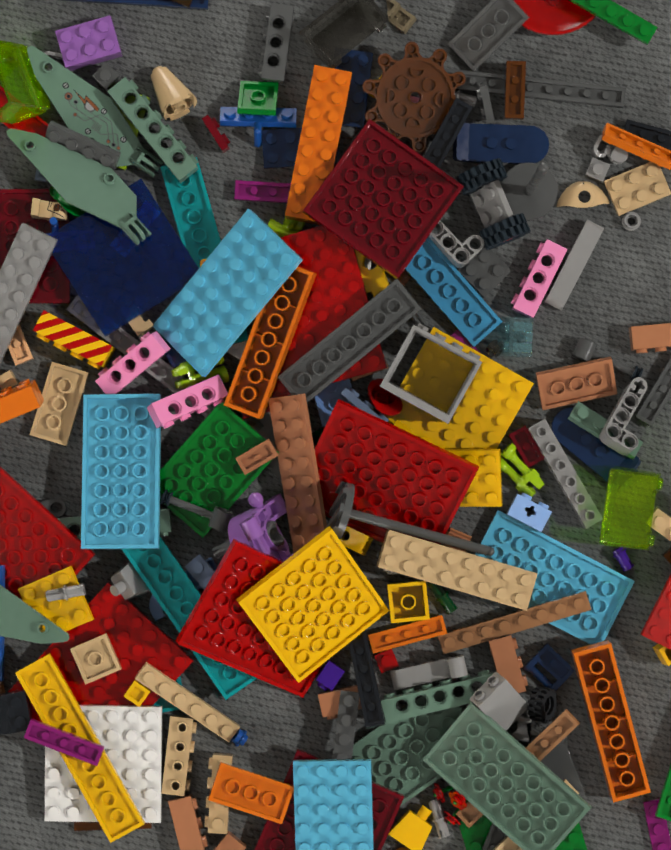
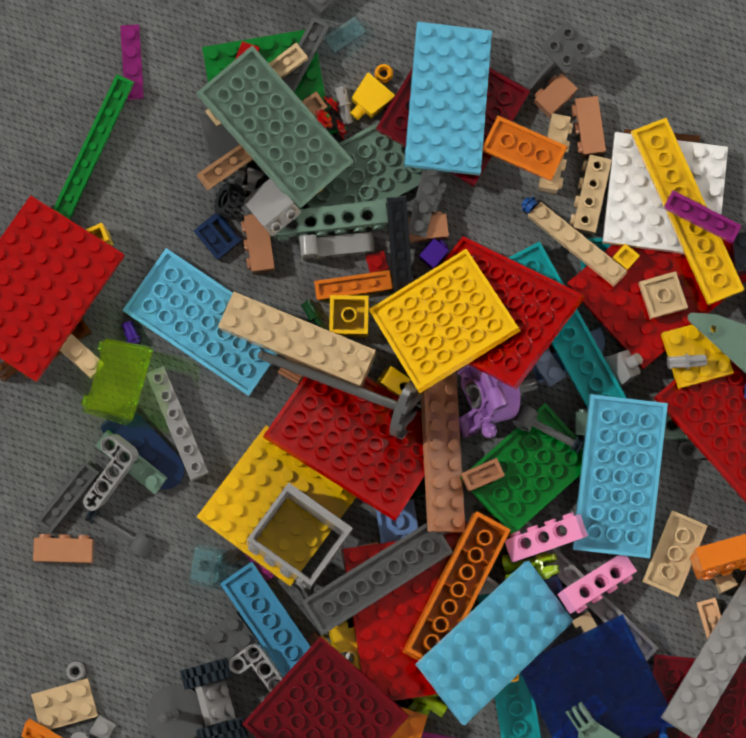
camera: 175 degrees left, 5 degrees down
(74, 339) = (653, 615): brick -> none
(352, 396) = (369, 512): sand blue plate -> none
(383, 400) = (351, 515): red piece -> none
(487, 483) = (256, 420): yellow plate -> none
(514, 622) = (245, 283): medium nougat plate -> none
(518, 512) = (211, 380): light blue brick -> none
(526, 446) = (212, 455): dark red plate -> none
(527, 474) = (213, 426): lime piece -> none
(556, 254) = (156, 644): bright pink brick -> none
(570, 195) = (134, 703): tan piece -> none
(574, 265) = (139, 632): light grey beam -> none
(576, 383) = (153, 512): nougat plate -> none
(610, 721) = (165, 177): orange brick -> none

